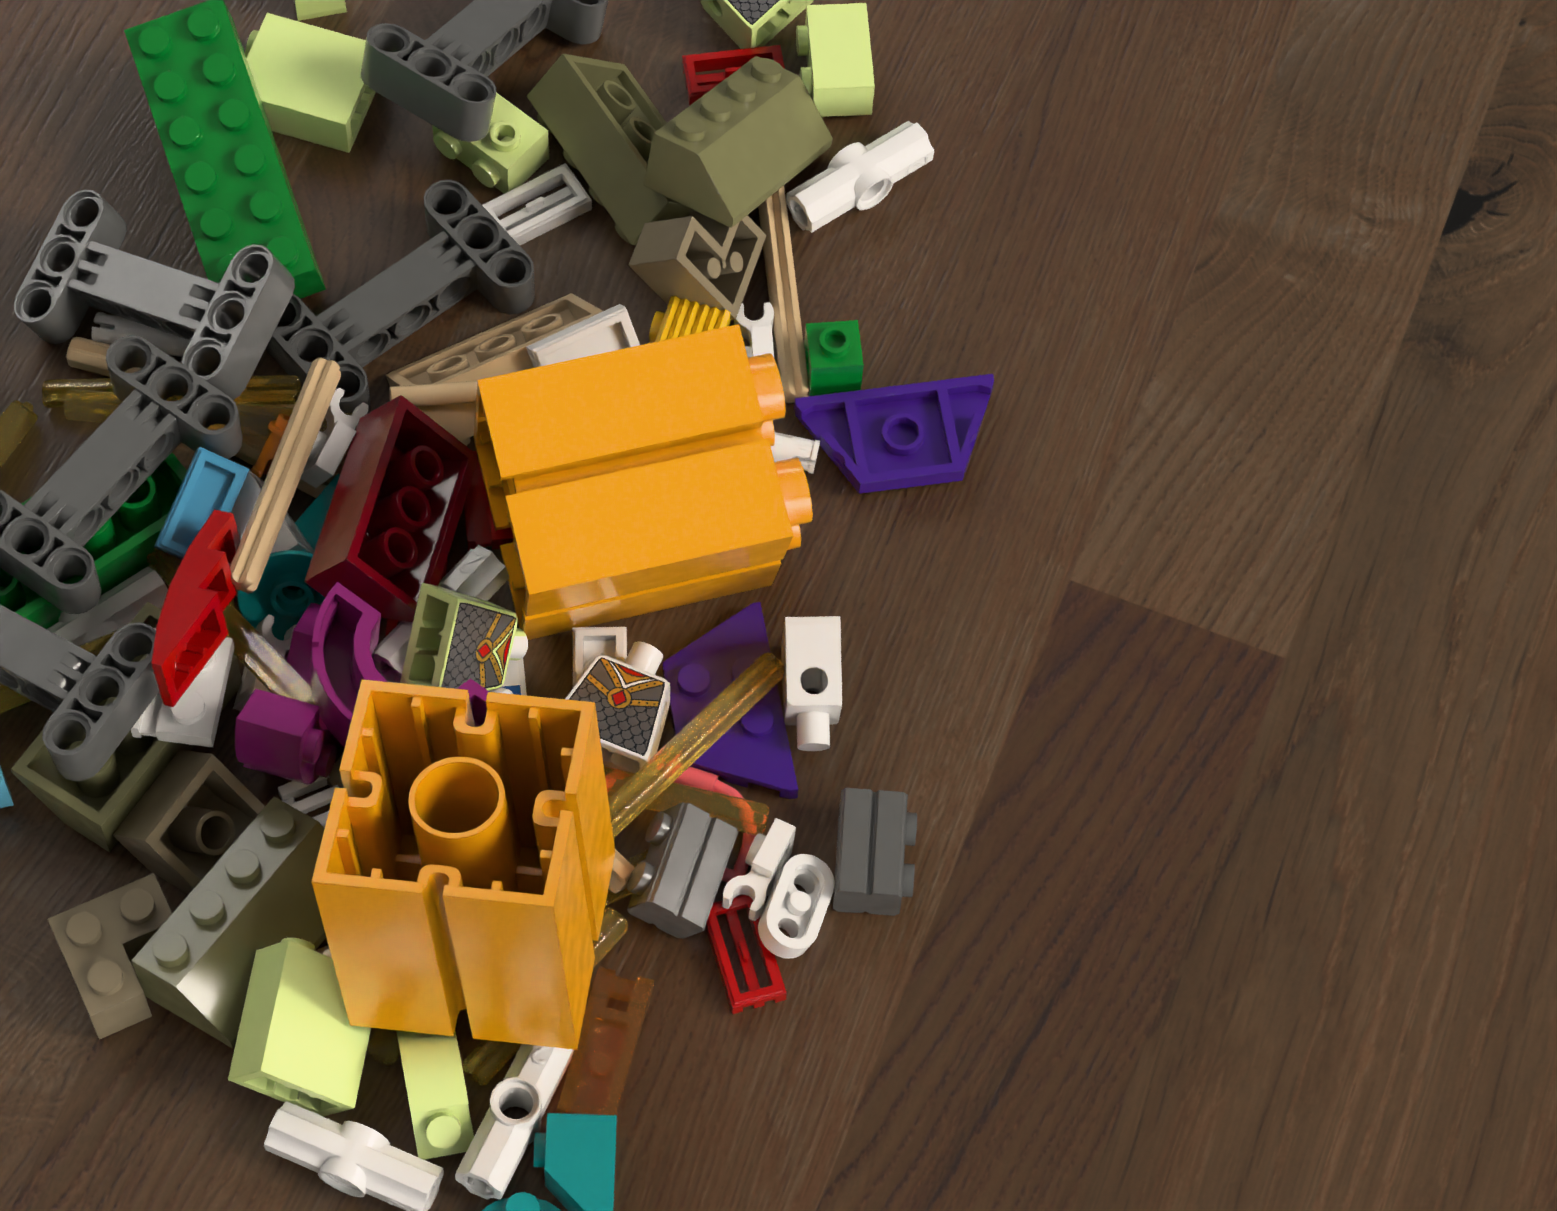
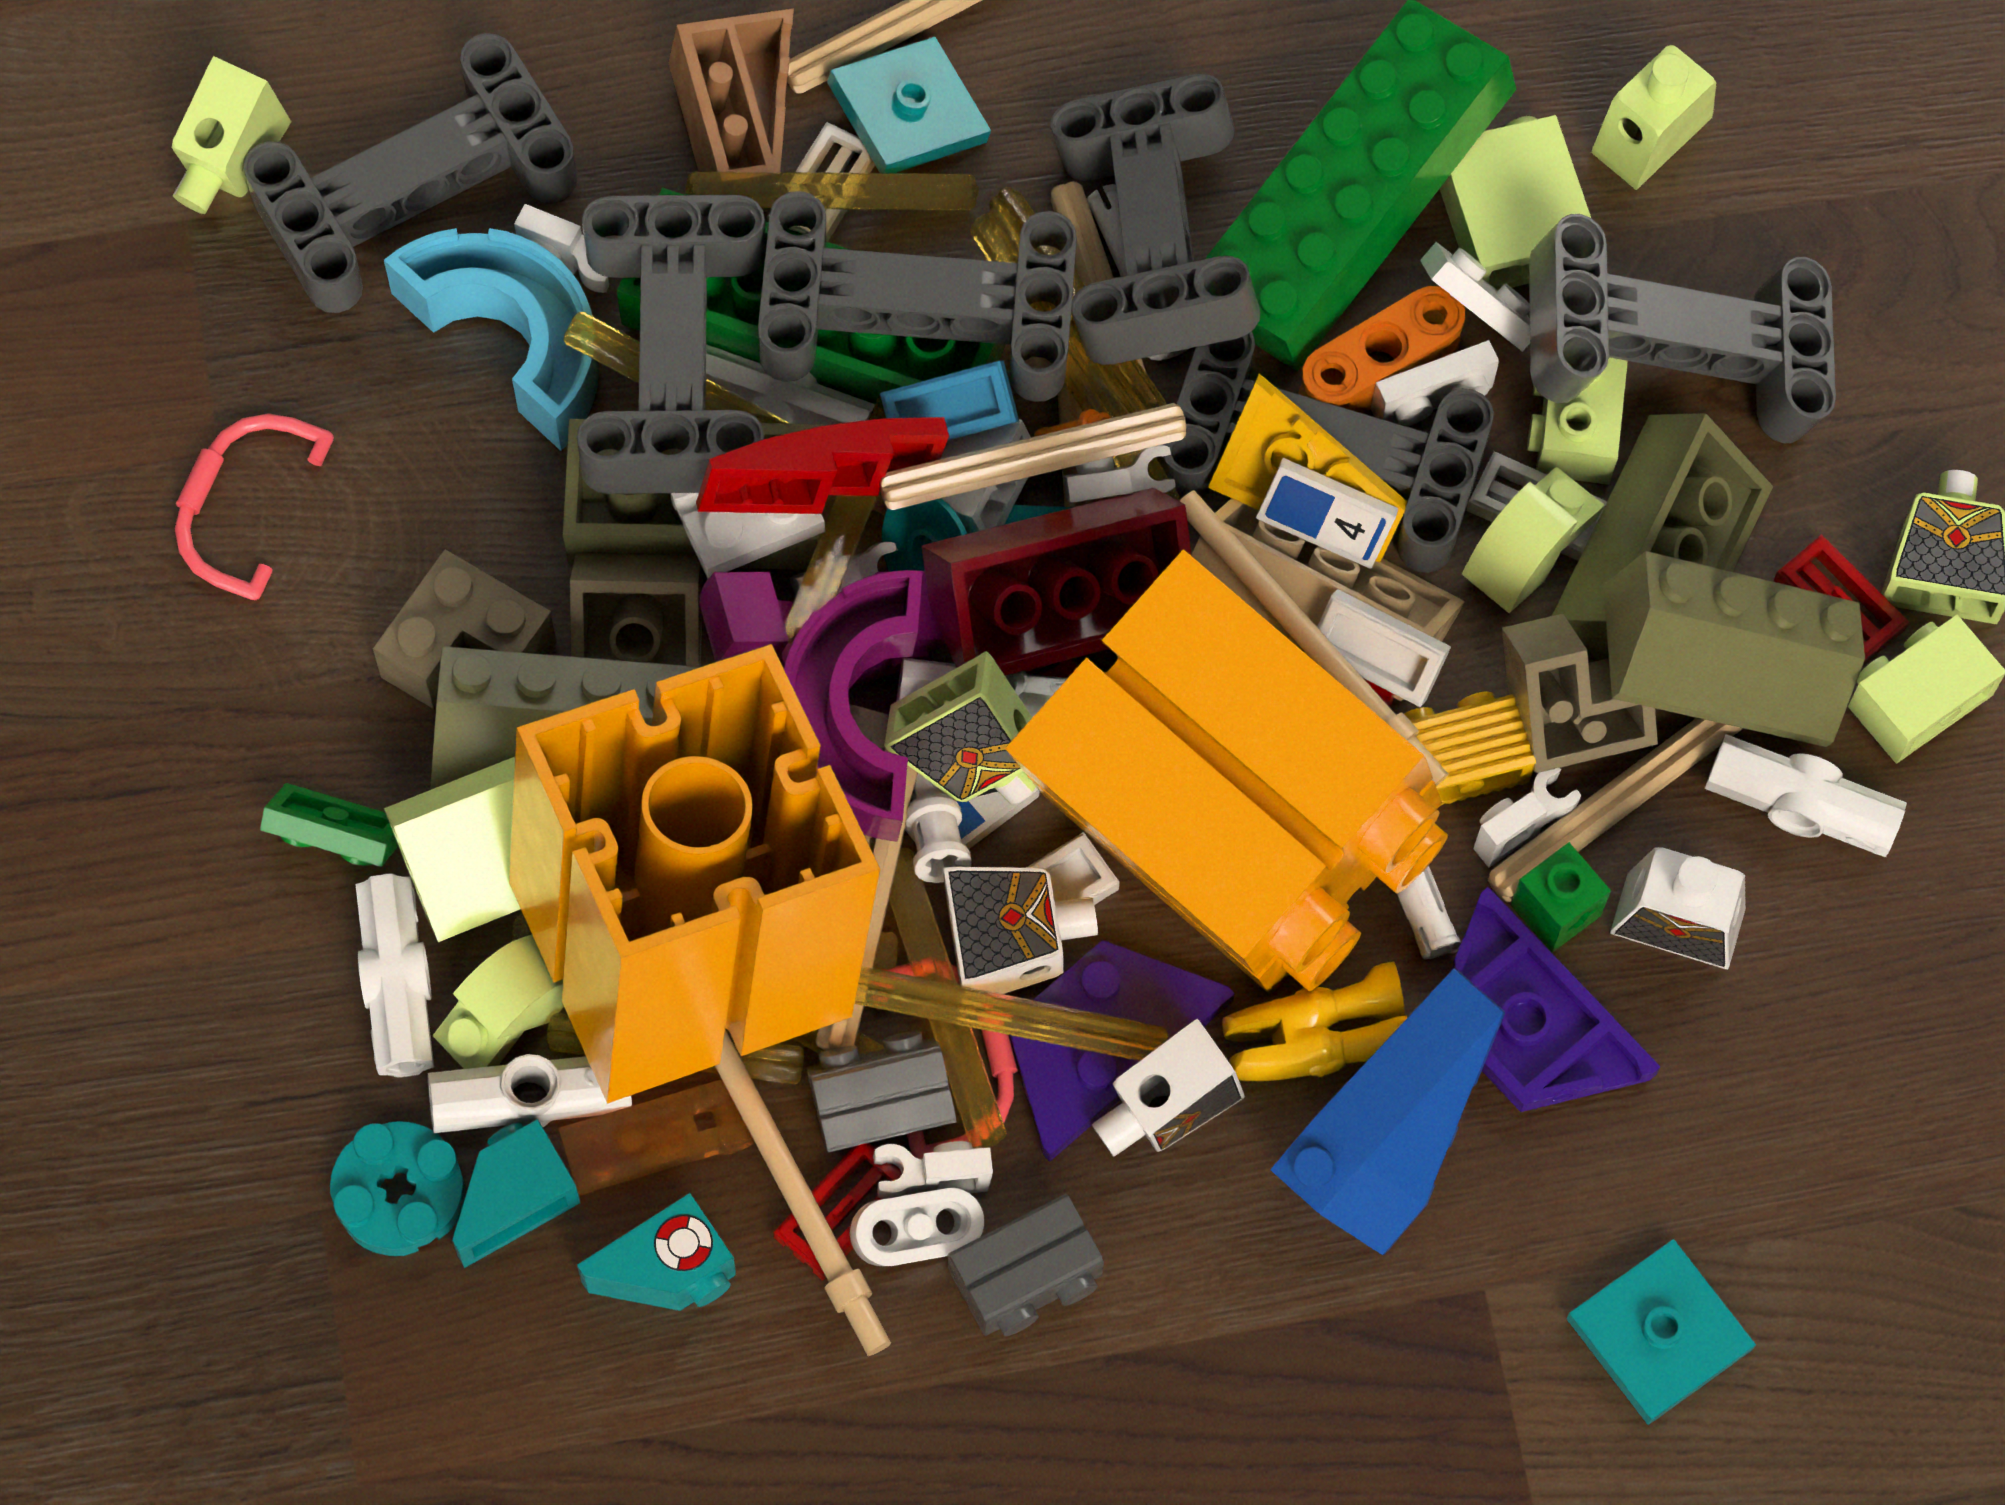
camera: 60 degrees right, 5 degrees up
(200, 1135) = (329, 823): none -> green plate
(356, 202) = (1411, 331): none -> orange piece
(381, 134) = (1462, 278): none -> white plate
(402, 228) = (1419, 391): none -> white plate
(417, 323) = (1278, 429): none -> yellow wing
(456, 326) = (1327, 513): none -> tile
(564, 220) = (1529, 537): none -> yellowish green brick
(709, 1091) = (663, 1261): none -> teal slope
(812, 978) = (846, 1286): none -> tan bar
(829, 579) = (1302, 1024): none -> yellow piece
(897, 284) = (1682, 906): none -> white torso
(929, 555) = (1384, 1135): none -> blue wedge
(1170, 490) = (1660, 1331): none -> teal plate

